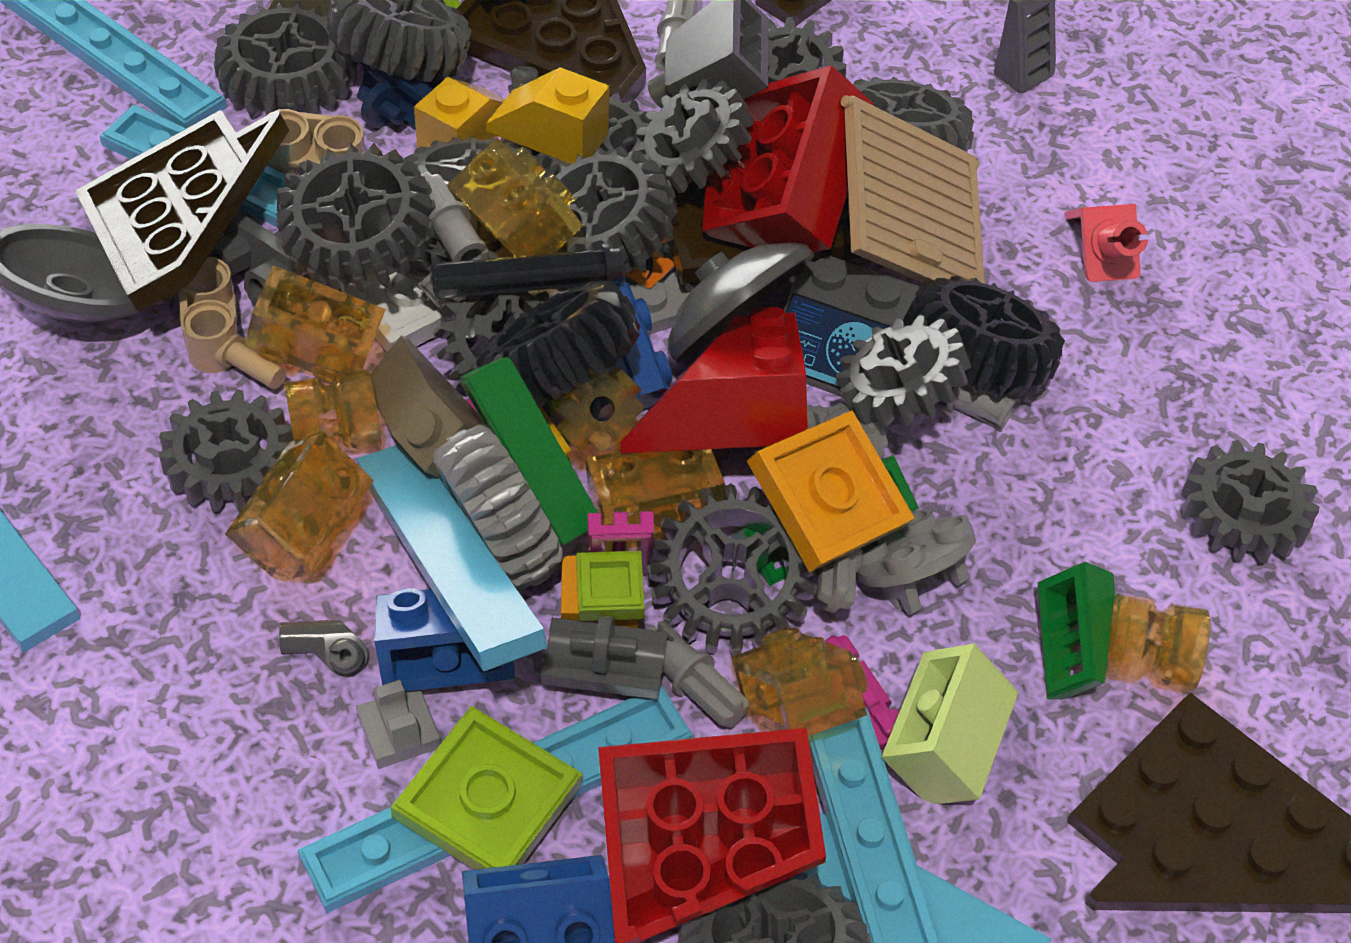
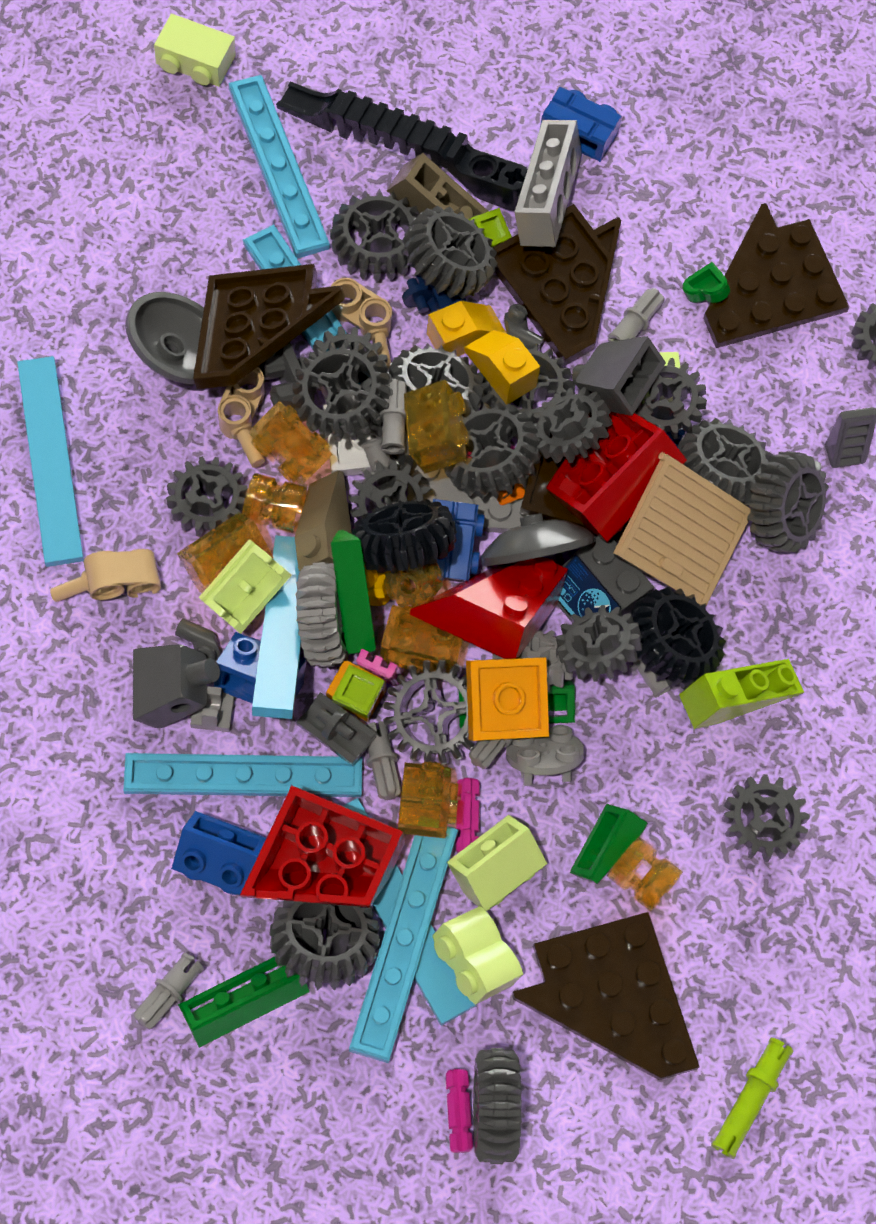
camera: 25 degrees right, 15 degrees up
(135, 610) = (108, 573): none -> tan beam
(317, 708) = (170, 683): none -> dark grey torso
(357, 525) = (245, 586): none -> yellowish green hinge
(486, 794) = (233, 774): lime tile -> none
(526, 272) = (417, 476): black axle -> none
(1010, 129) = (788, 501): none -> dark grey gear
(1012, 866) = (477, 955): none -> yellowish green brick
(1101, 372) = (739, 691): none -> lime slope
(1110, 241) = (807, 602): coral bracket -> none

